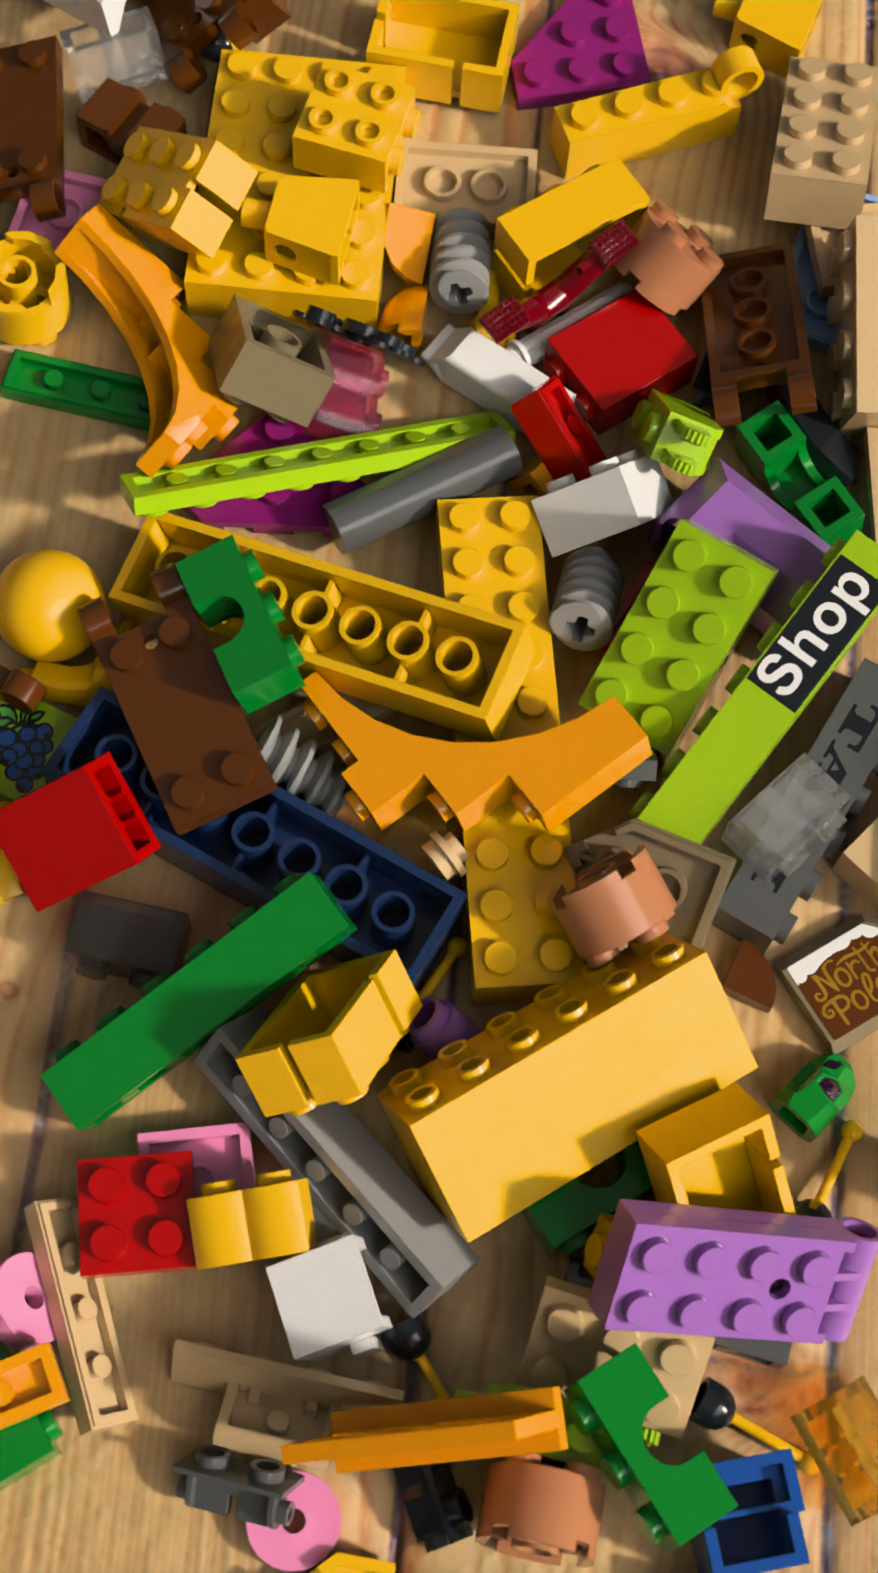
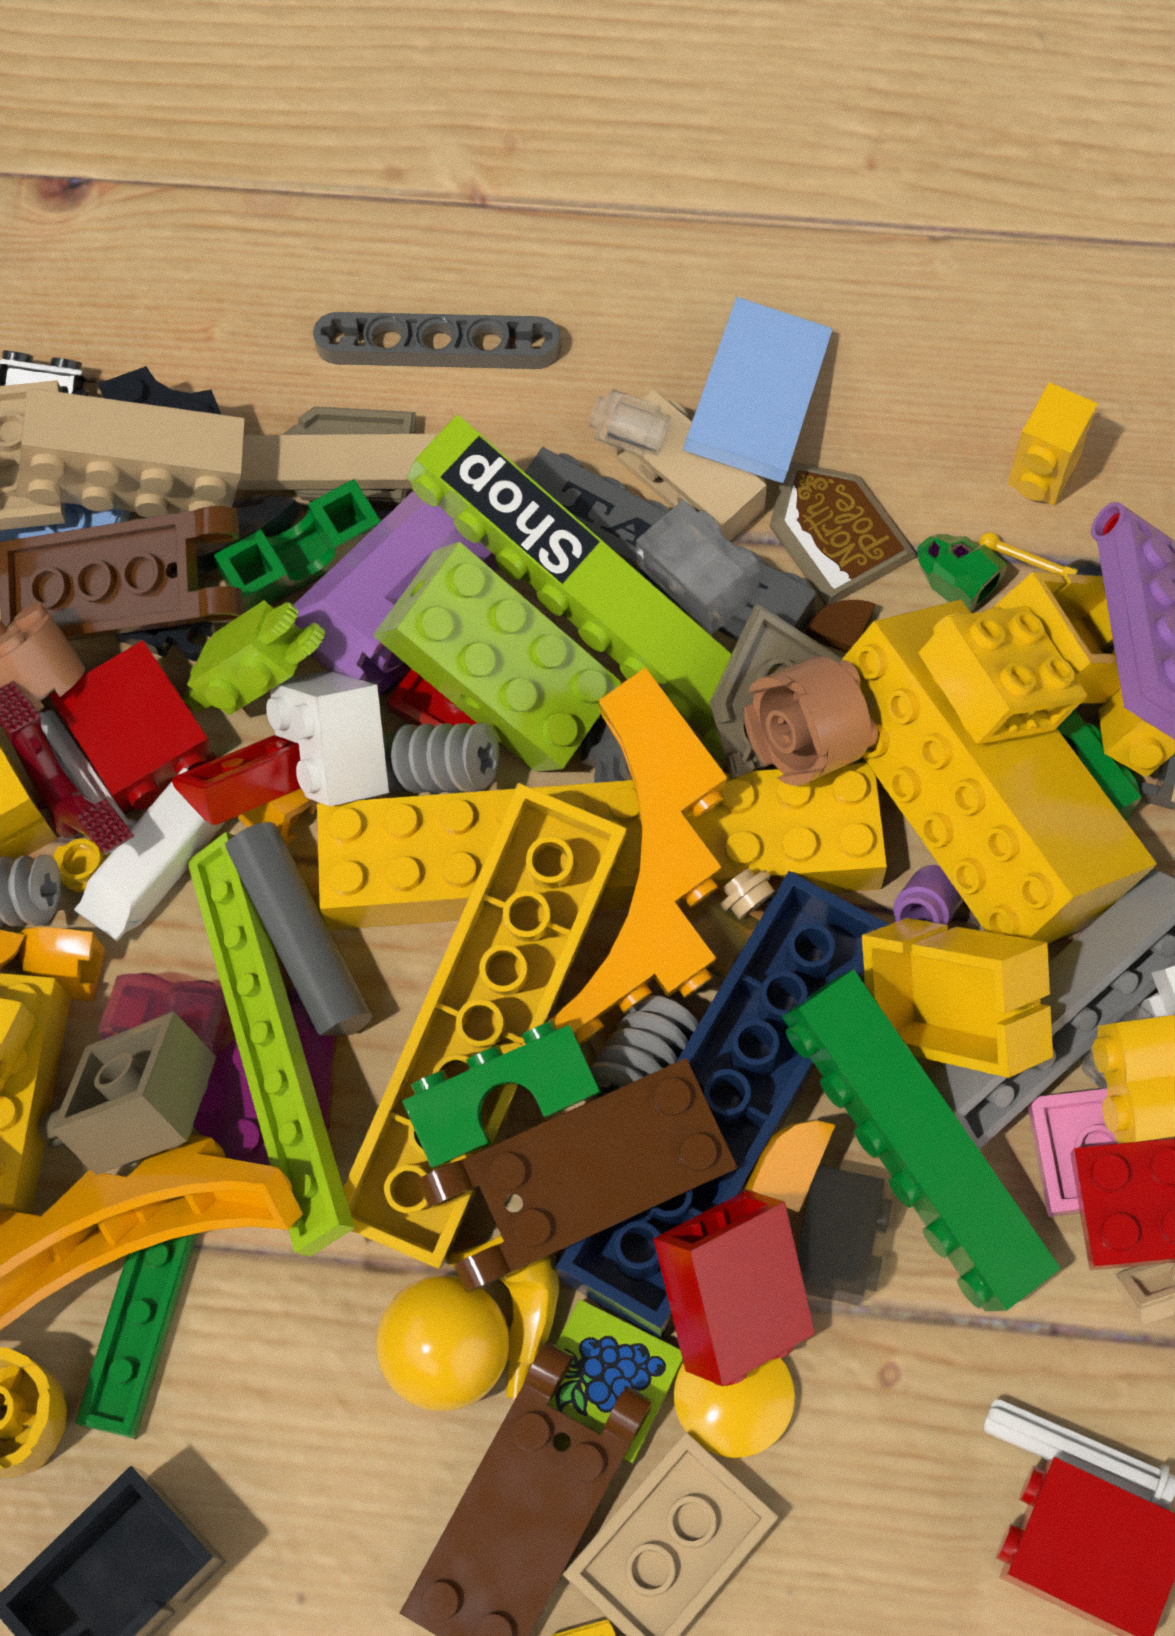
camera: 80 degrees left, 0 degrees up
(186, 887) = (790, 1162): none -> light orange brick
(359, 333) = (112, 967): black plant -> none
(652, 1073) = (1001, 673): none -> yellow brick

